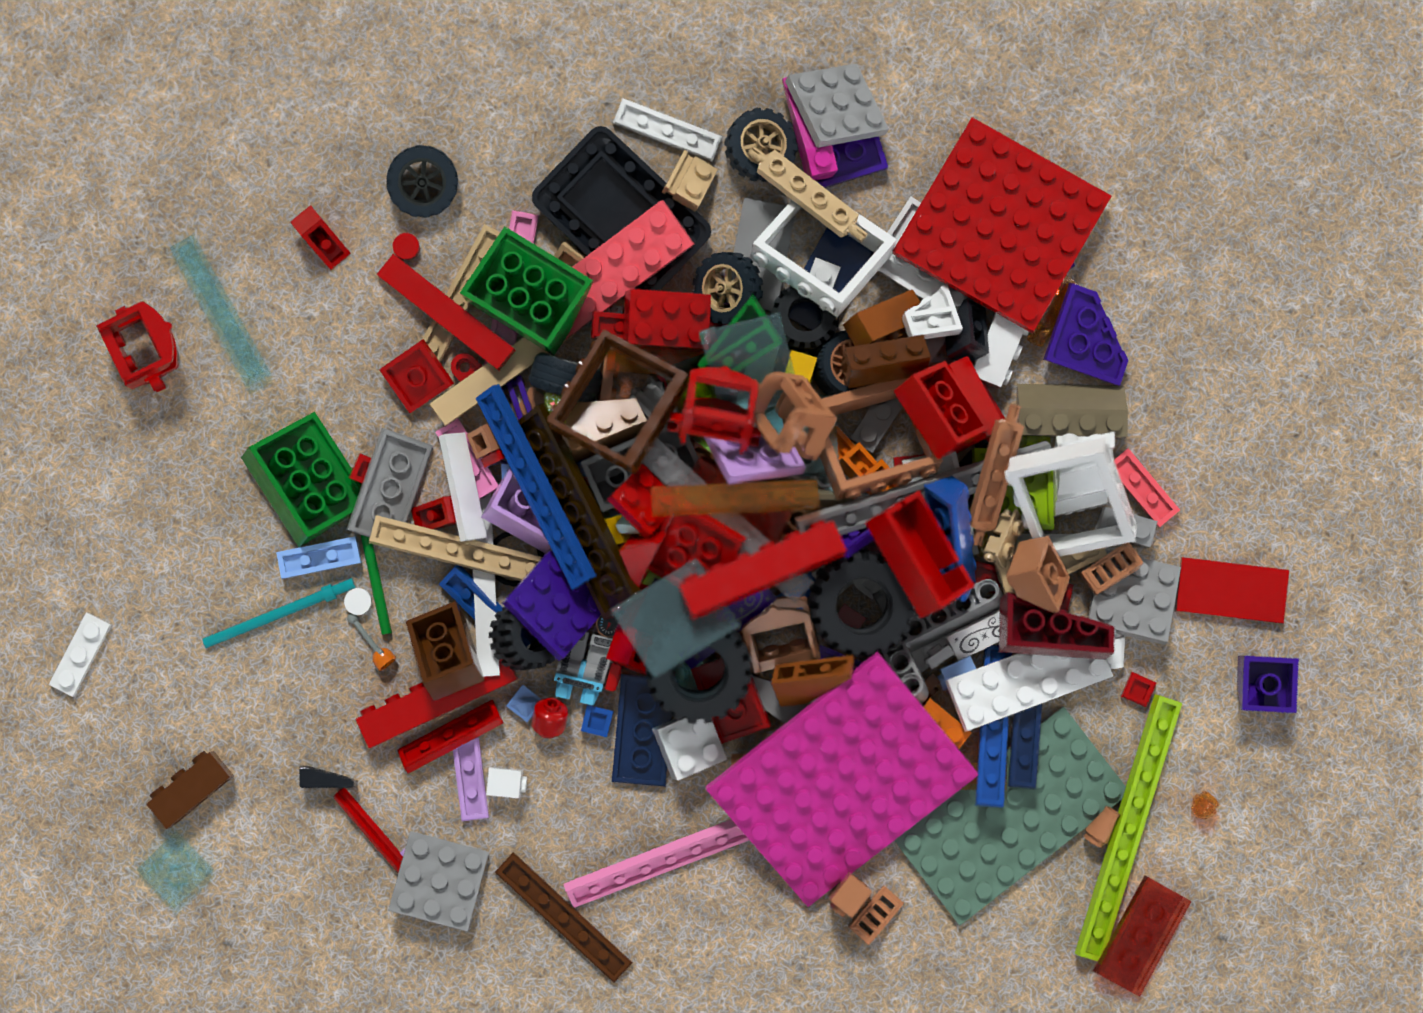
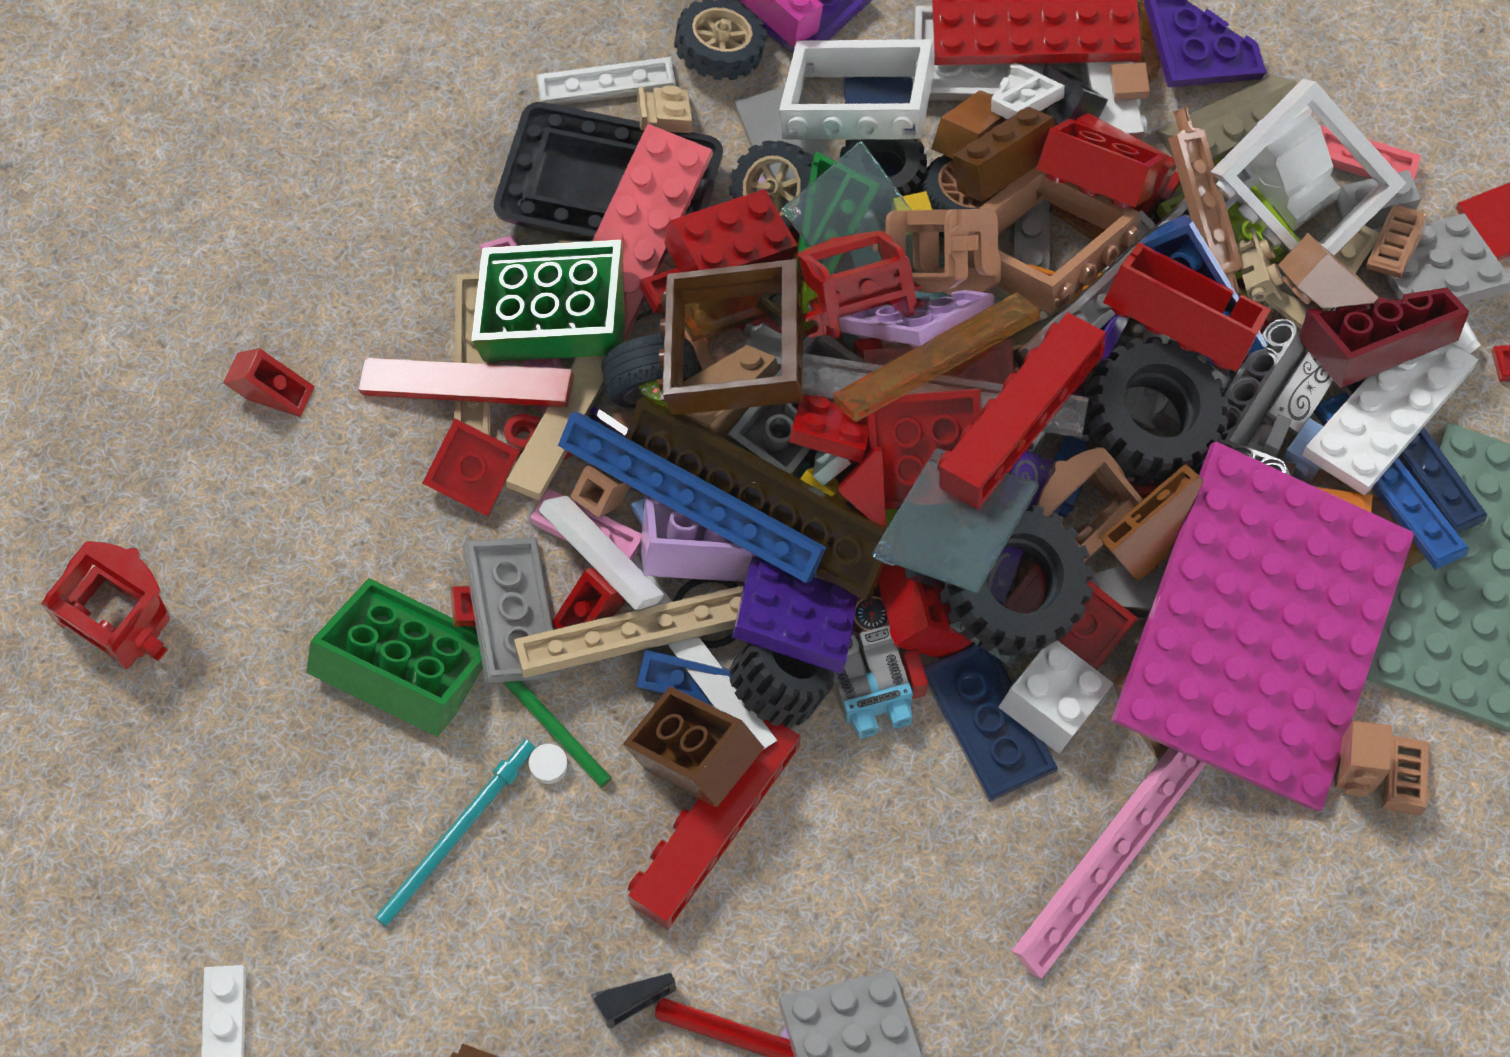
camera: 35 degrees left, 20 degrees down
(220, 310) = (190, 527): clear light blue tile -> none
(319, 557) = (469, 737): light blue plate -> none
(382, 656) = (614, 810): hinge -> none
(406, 246) = (377, 343): red tile -> none
(407, 203) = (373, 234): black wheel -> none
(450, 736) = (758, 856): red tile -> none
(470, 781) = (814, 897): lavender tile -> none
(493, 458) = (619, 506): red tile -> none
(506, 782) = (862, 871): white brick -> none
(523, 703) = (826, 768): medium blue tile -> none
(549, 718) = (868, 762): red head -> none
(563, 917) = (1037, 999): reddish brown tile -> none
(597, 720) = (927, 737): blue plate -> none
(807, 193) = (805, 43): tan plate -> none
(1014, 345) = (1129, 81): none -> nougat tile

